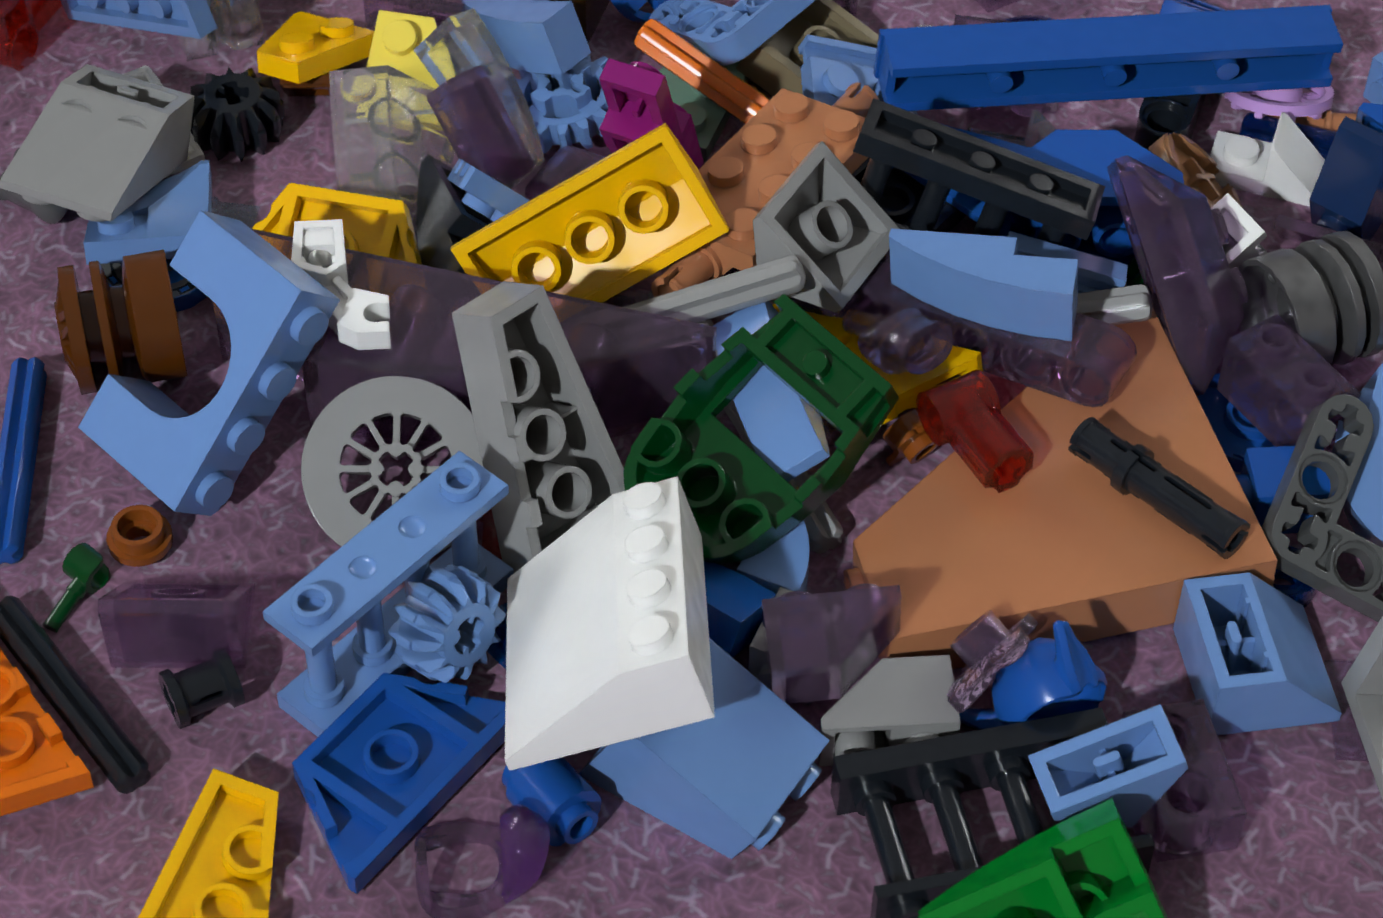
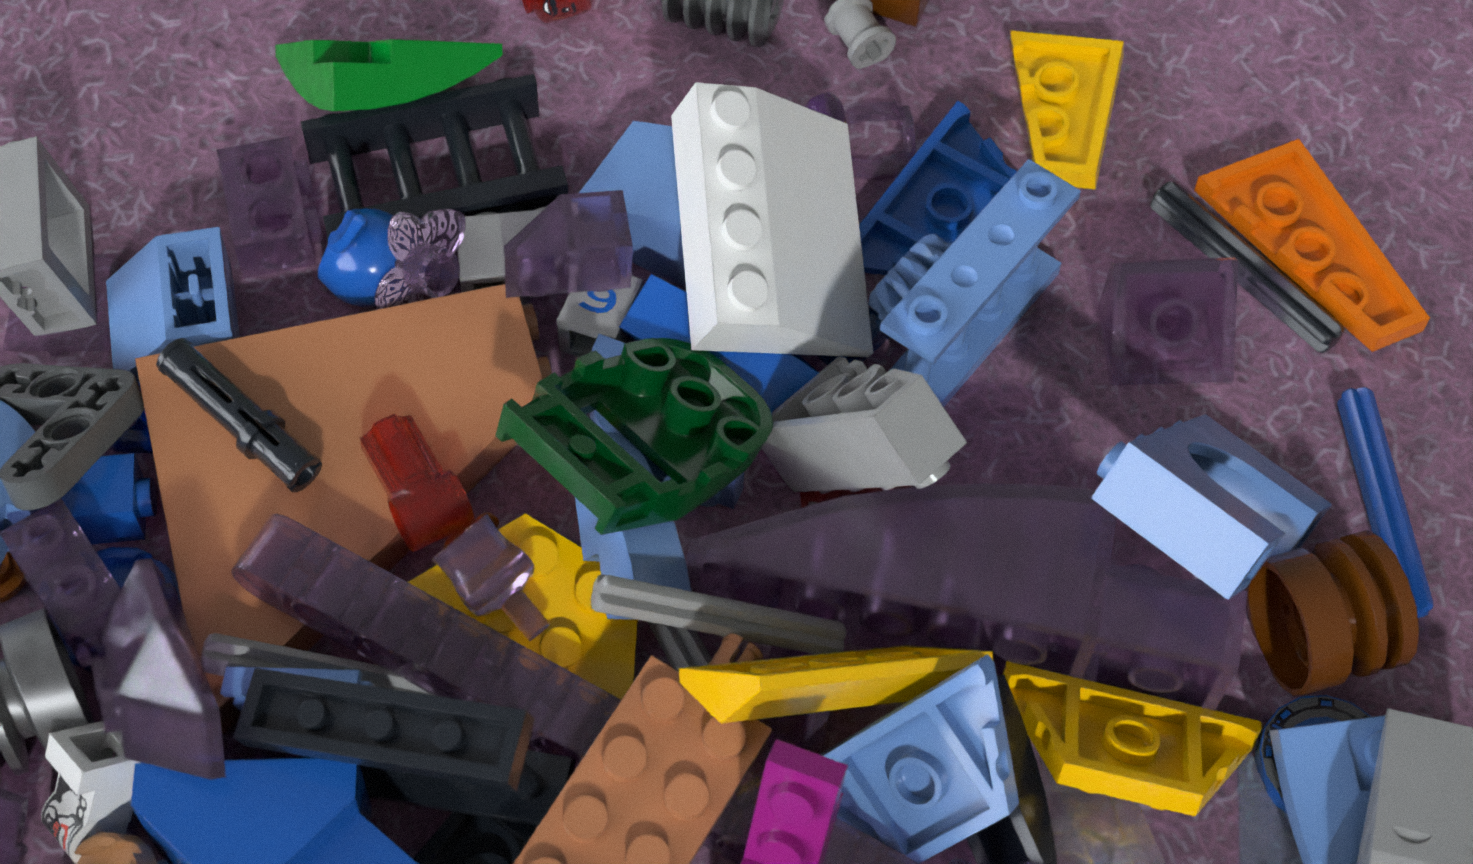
camera: 175 degrees right, 10 degrees up
(88, 574) = (1270, 380): dark green hand -> none
(137, 522) = (1241, 403): dark orange plate -> none
(201, 688) = (1141, 245): black bush -> none
(321, 253) = (1086, 524): white piece -> none
(359, 408) = (1018, 448): light grey piece -> none
(828, 225) = (574, 679): light grey slope -> none
(987, 281) = (386, 598): medium blue slope -> none
(1123, 761) = (332, 159): medium blue slope -> none

